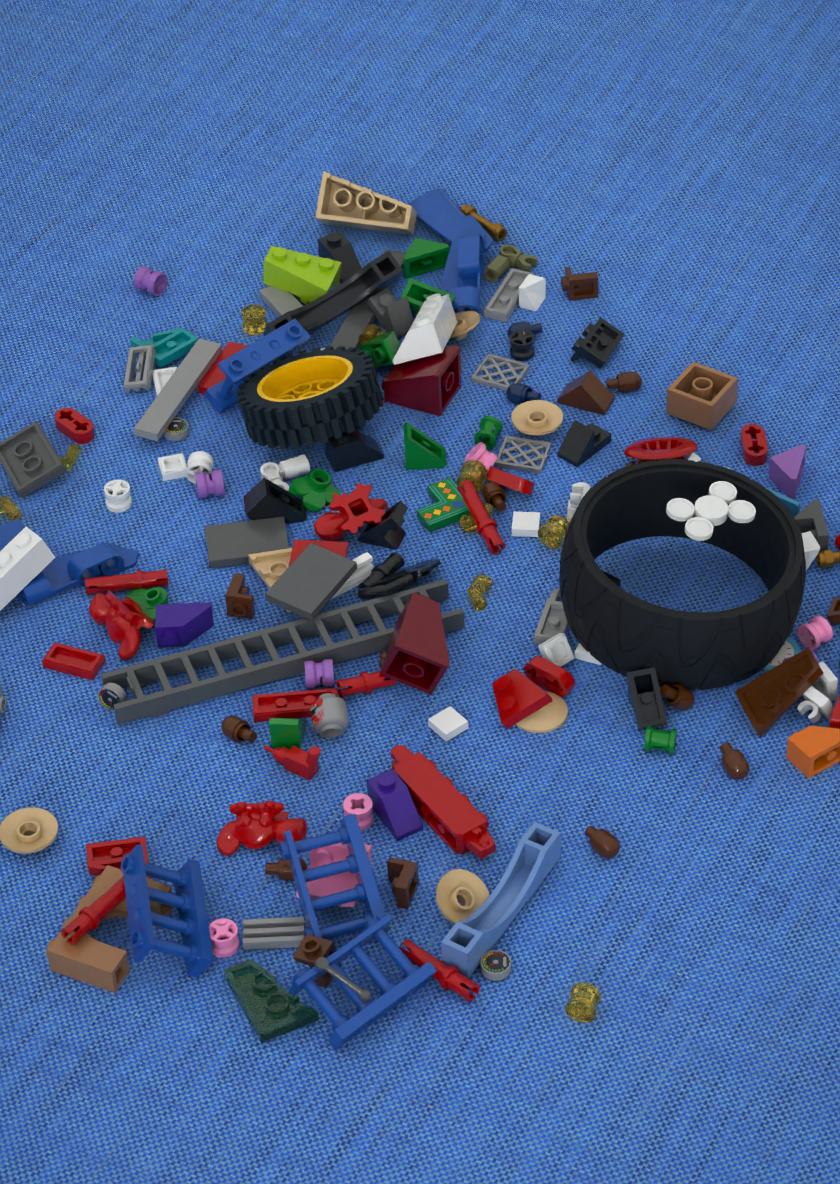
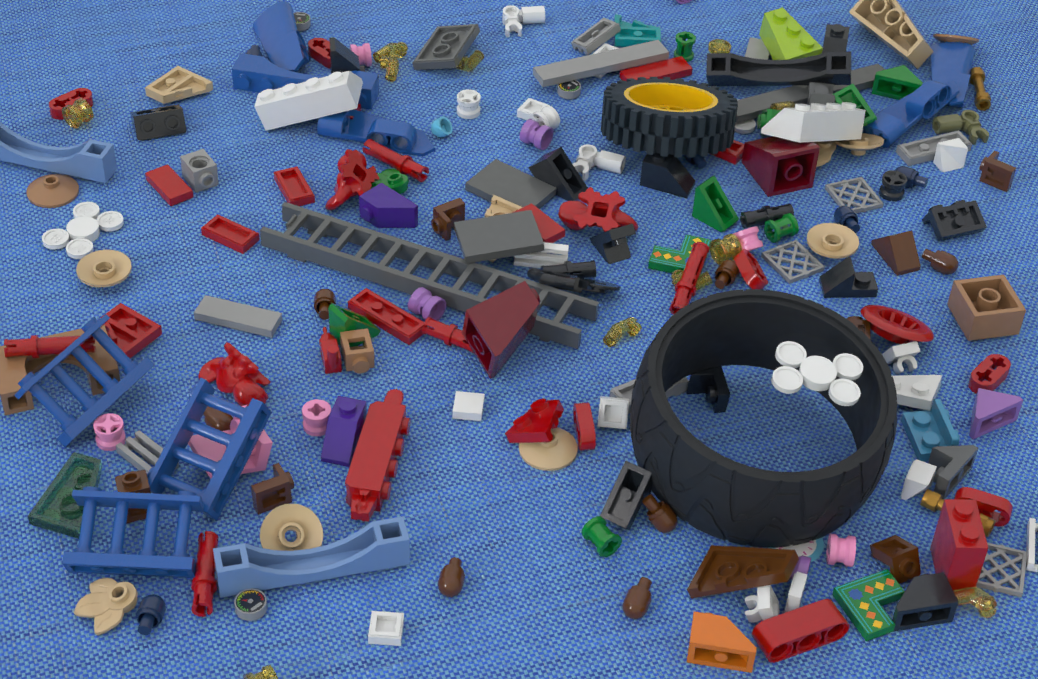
camera: 40 degrees right, 0 degrees up
(45, 395) = (527, 15): none -> white bar
(74, 425) = (507, 46): red beam -> none
(79, 733) = (230, 234): none -> red tile
(110, 695) = (278, 221): tile -> none
(124, 530) = (441, 127): none -> medium azure hinge
(184, 788) = (238, 316): none -> light grey tile
(223, 330) = (685, 46): none -> green bush
(252, 359) = (663, 63): blue fence -> none
(314, 489) = (602, 181): green plate -> none
(321, 736) = (359, 357): none -> medium nougat brick
(322, 964) = (104, 493): dark grey hinge -> none
(329, 715) = (390, 337): light grey head -> none
(396, 1046) = (107, 603): none -> tan plate
(415, 192) = (955, 38): none -> medium nougat dish
(439, 1024) = (150, 613): none -> dark blue cylinder
(464, 431) = (766, 213): none -> black pin
(603, 907) = (386, 628): none -> white tile

